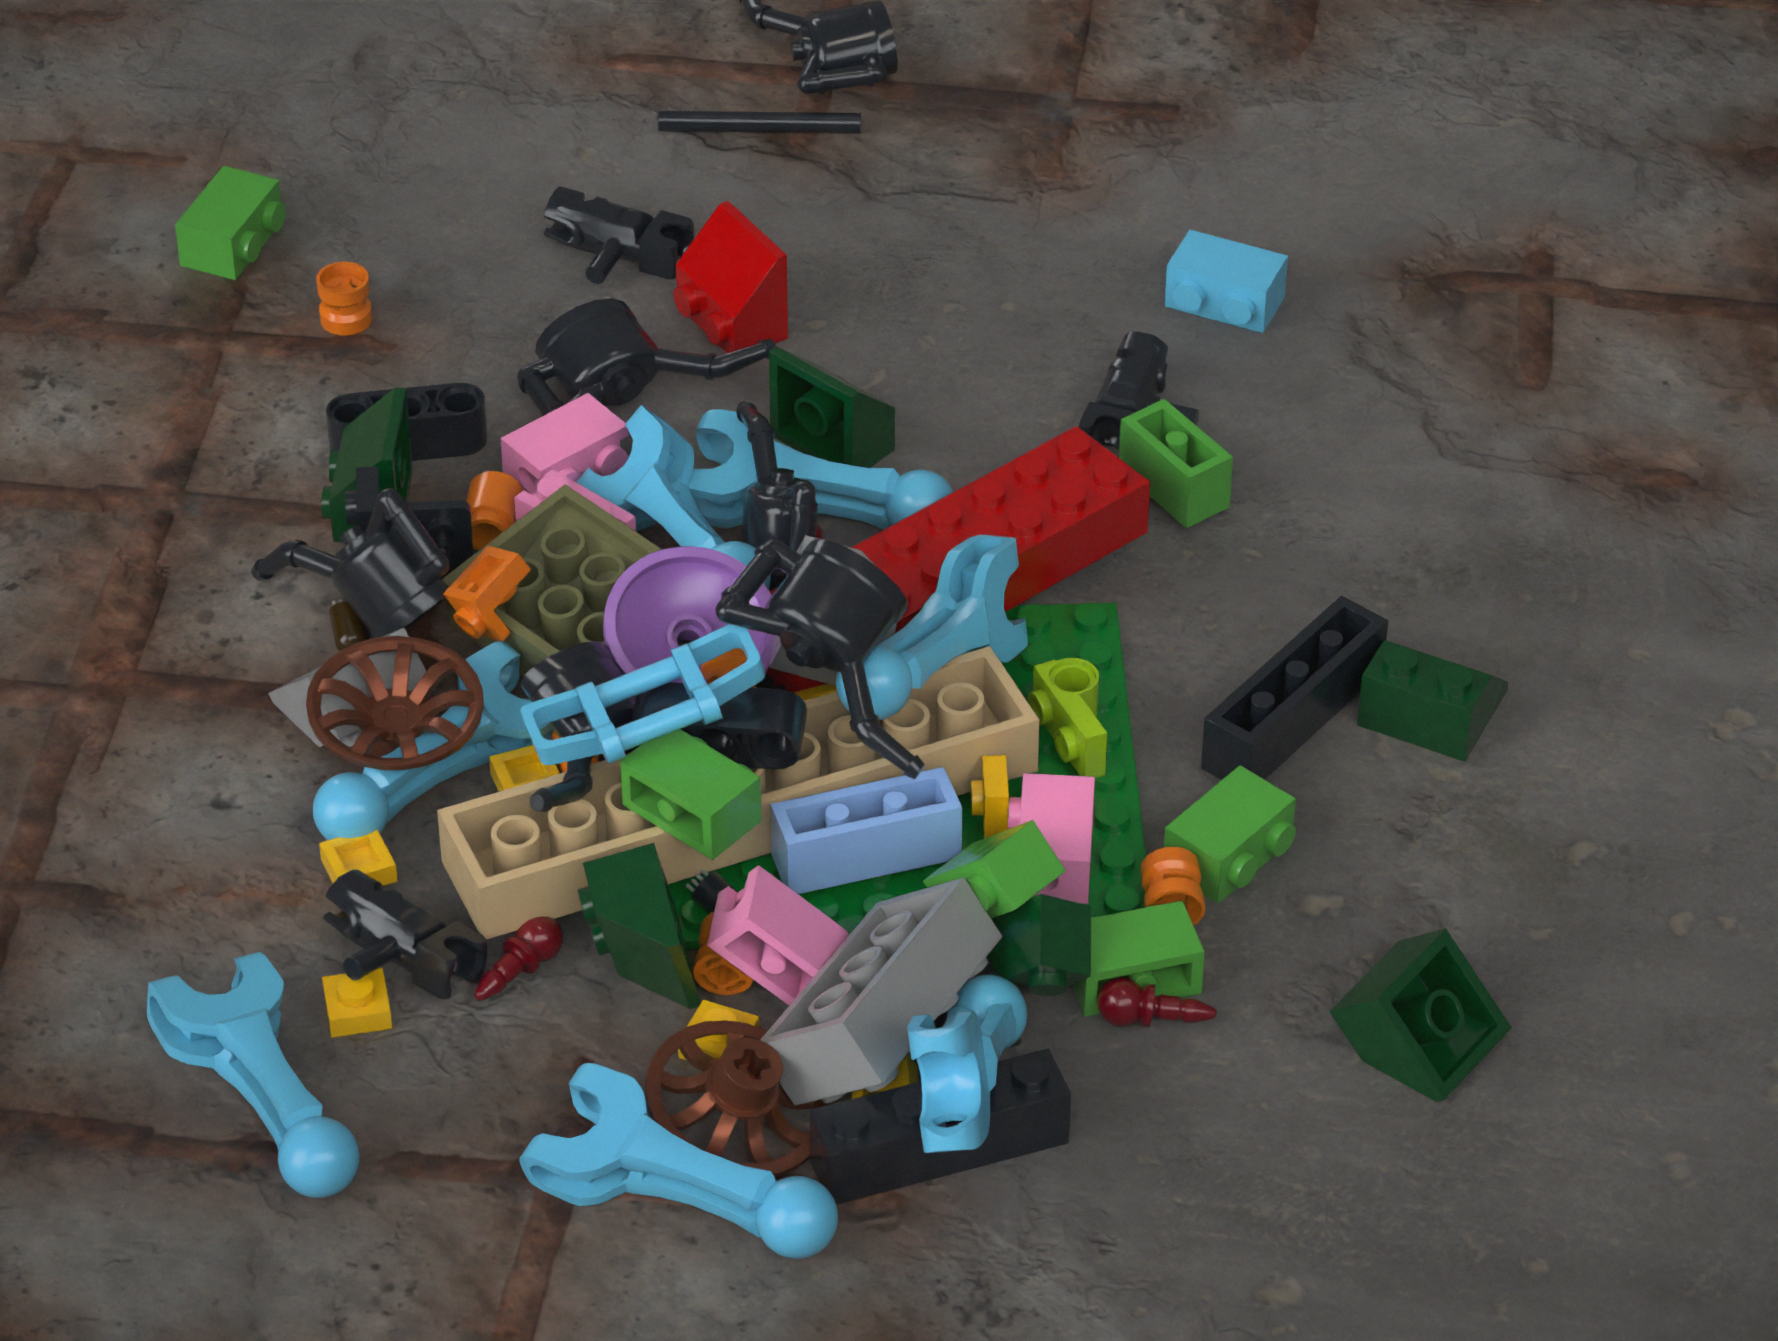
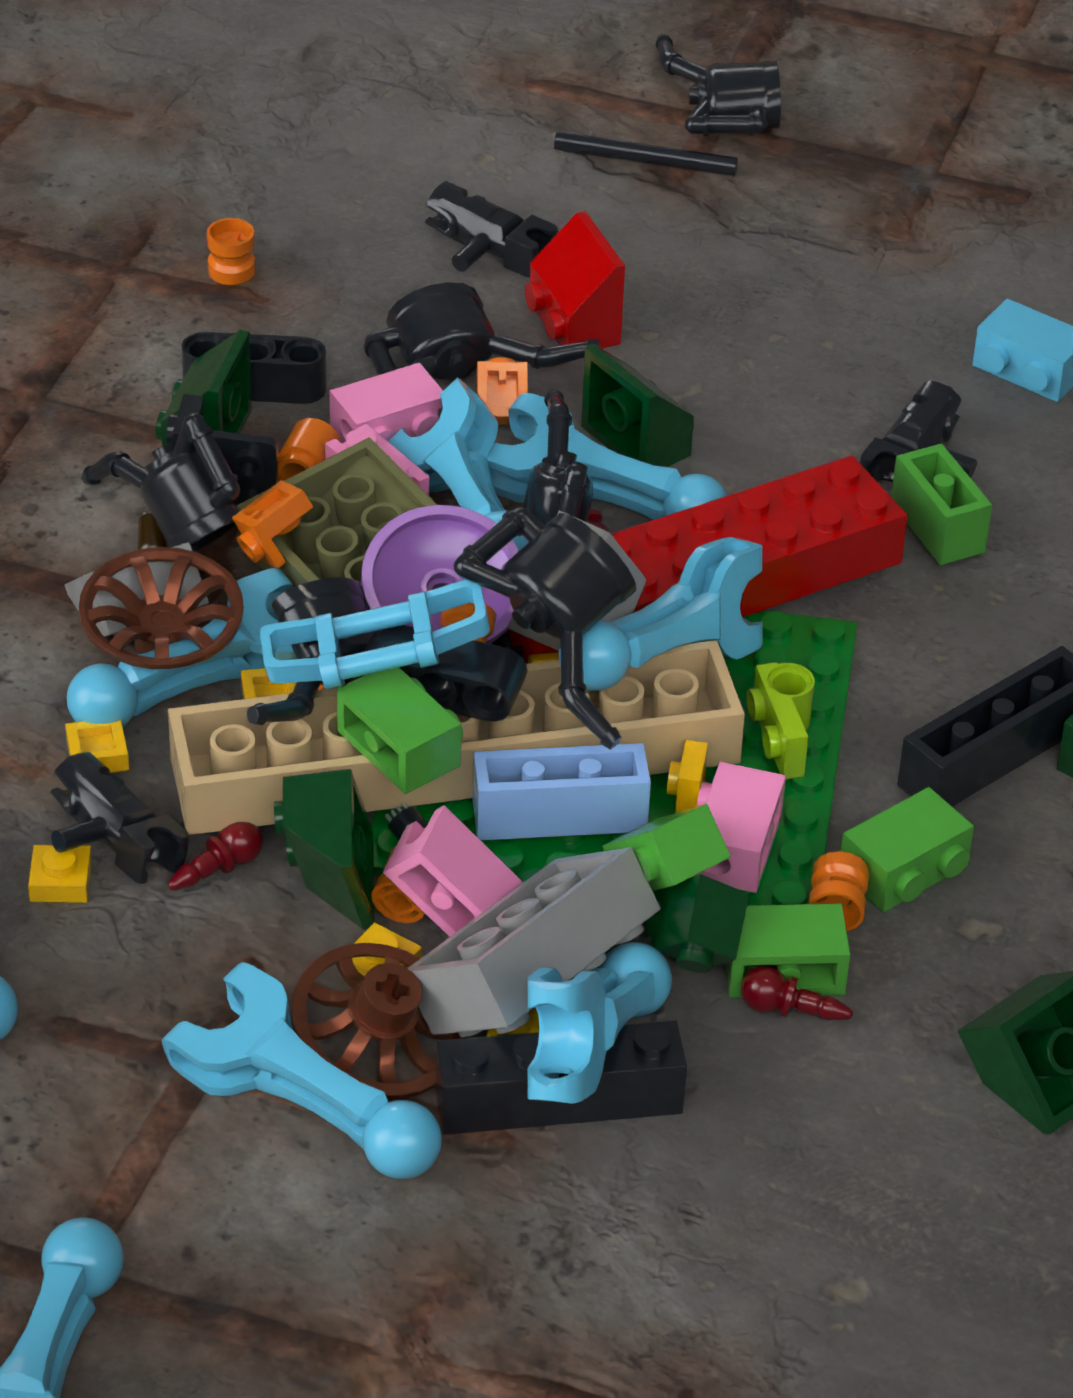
camera: 10 degrees right, 0 degrees up
(230, 222) = (149, 172): bright green brick -> none
(679, 402) = (500, 383): none -> orange bracket

